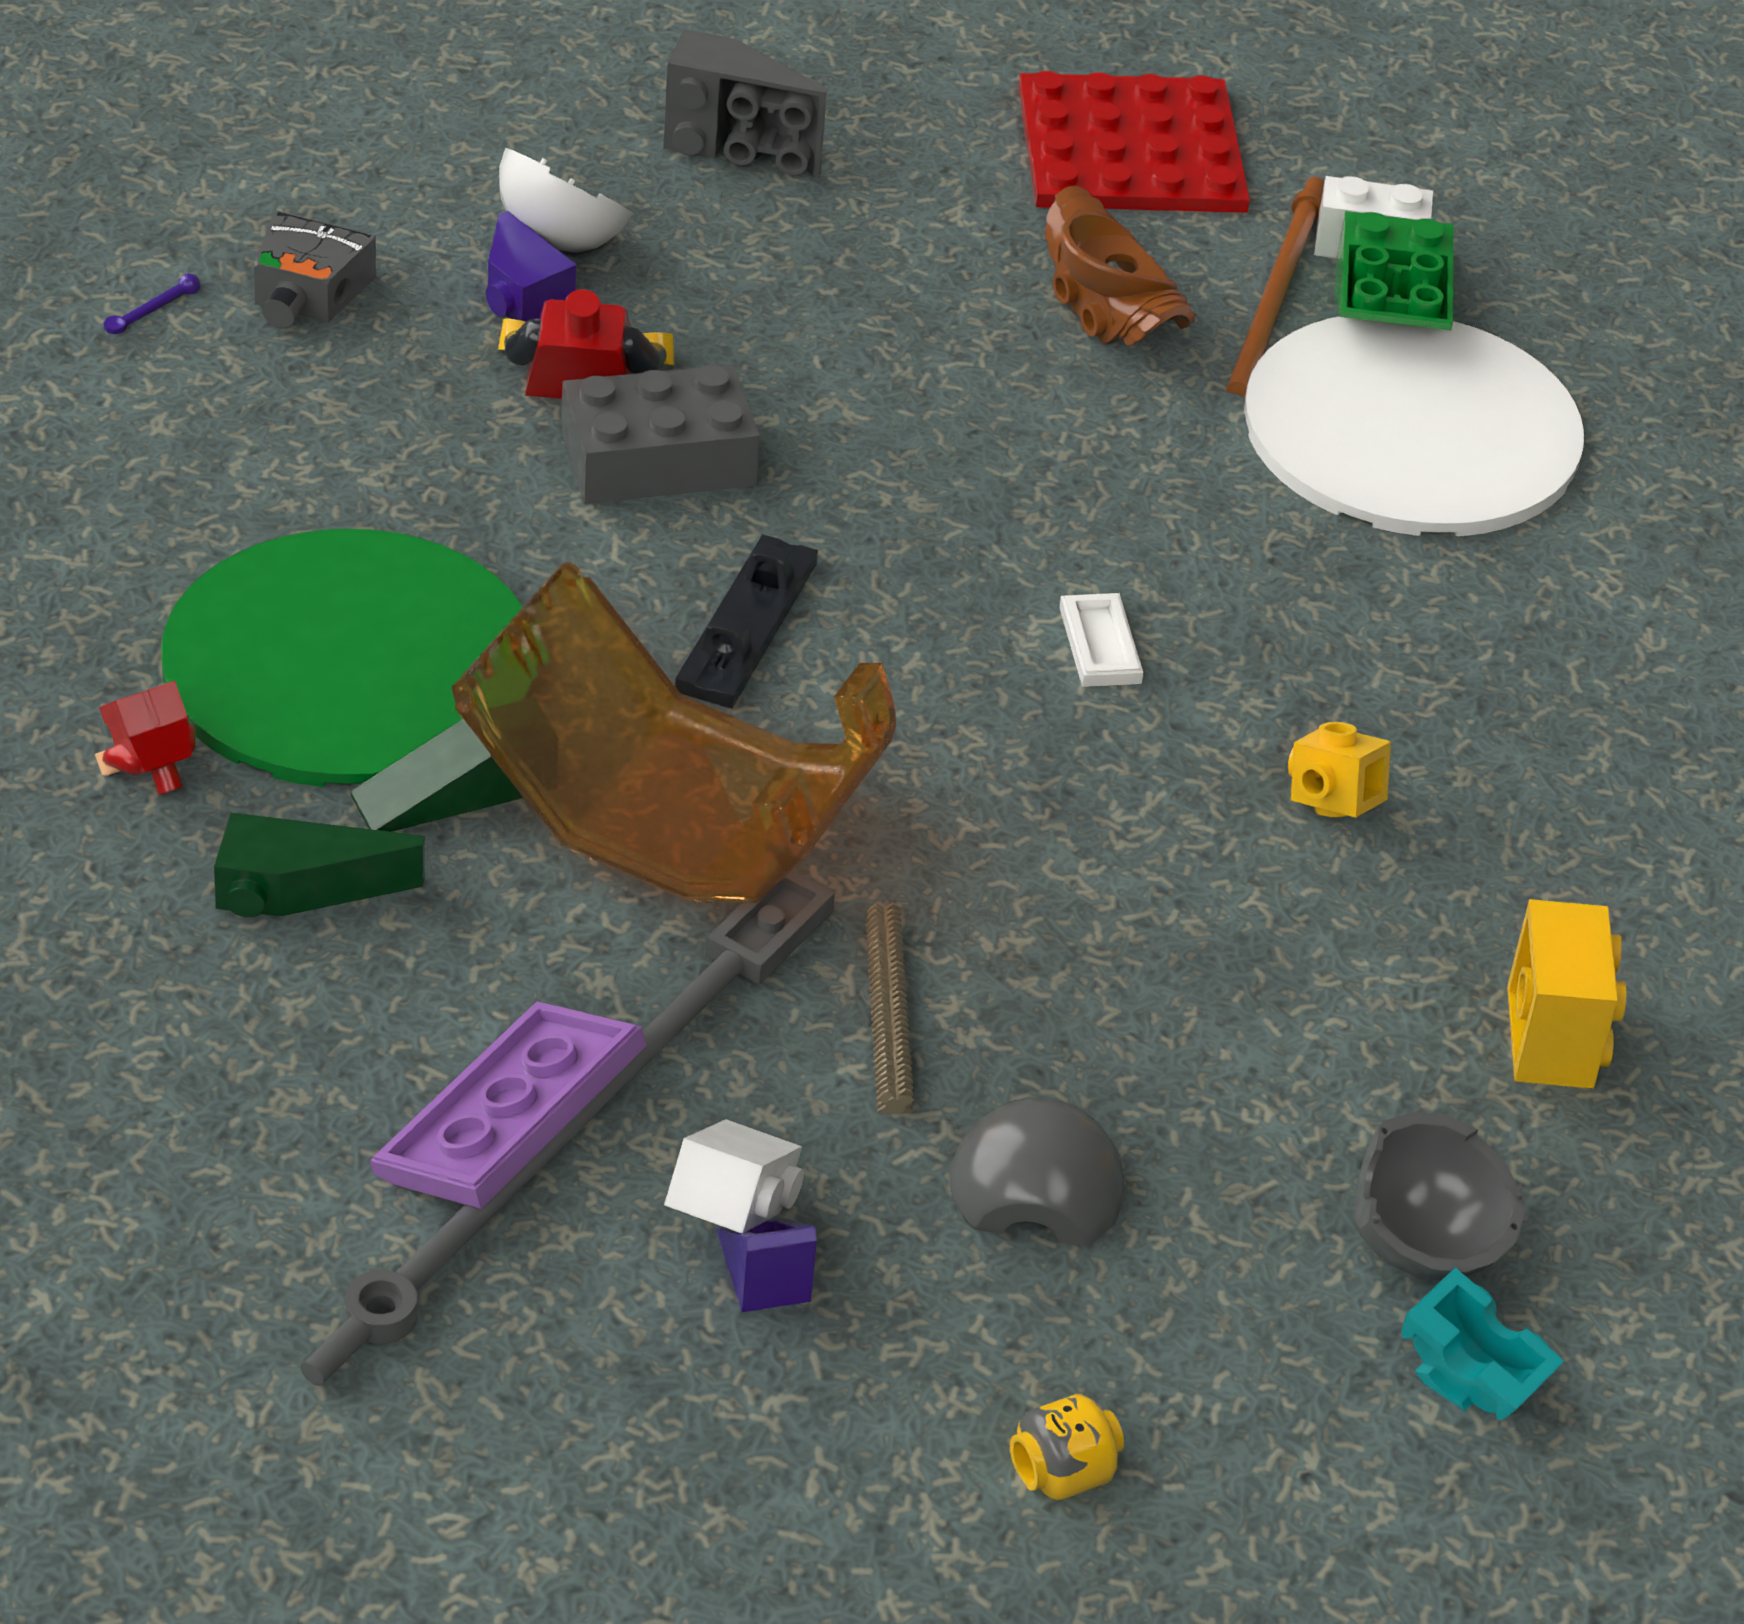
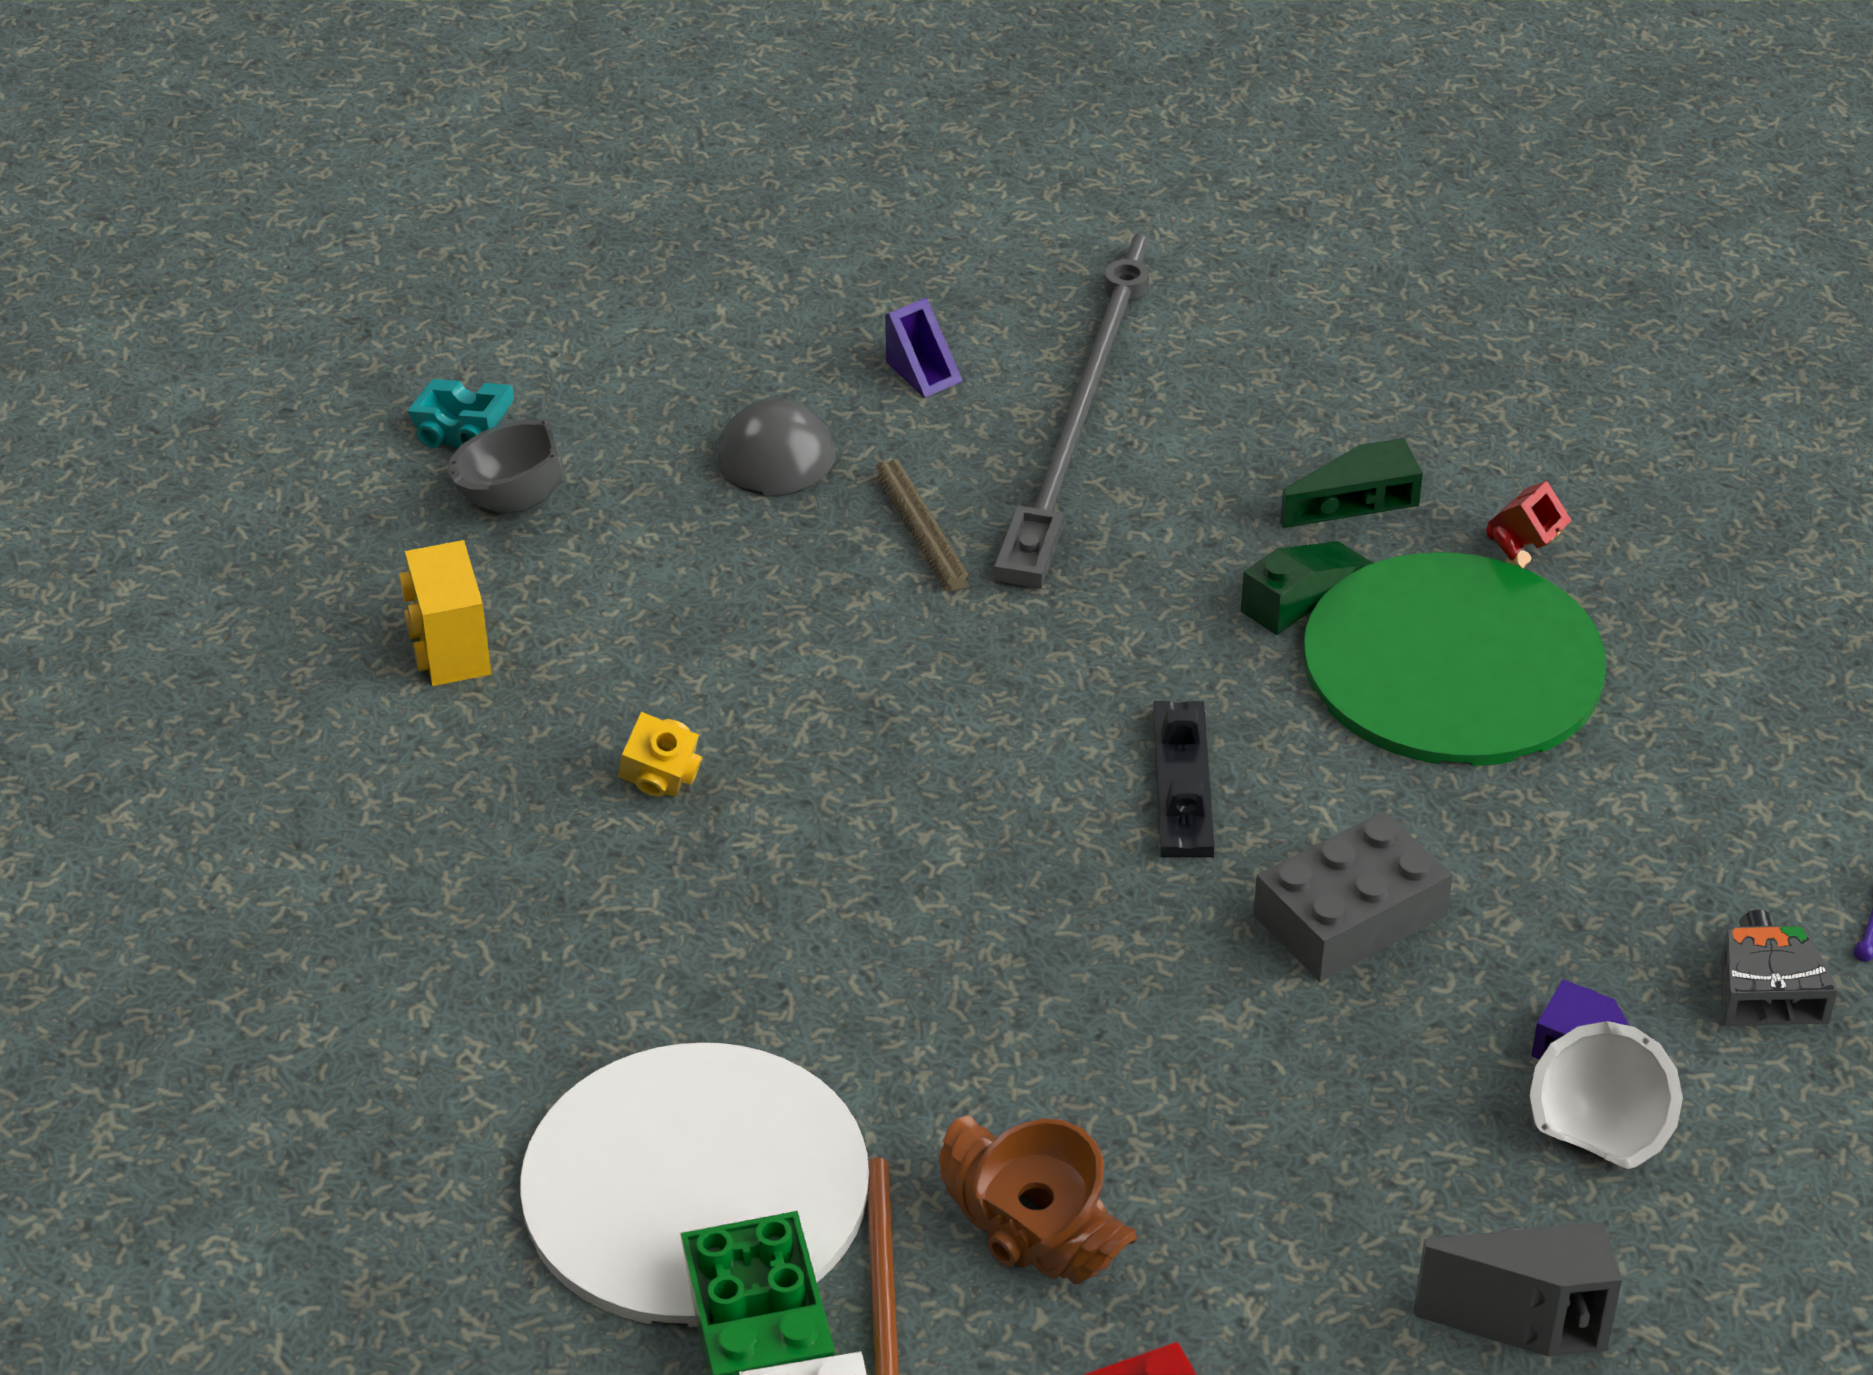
camera: 165 degrees right, 0 degrees up
(508, 1104) = (1125, 391): medium lavender tile -> none
(581, 341) = (1466, 939): red torso -> none
(648, 774) = (1151, 596): clear orange windscreen -> none
(735, 1176) = (957, 358): white brick -> none
(1067, 1447) = (699, 312): yellow head -> none
(1101, 640) = (896, 852): white tile -> none

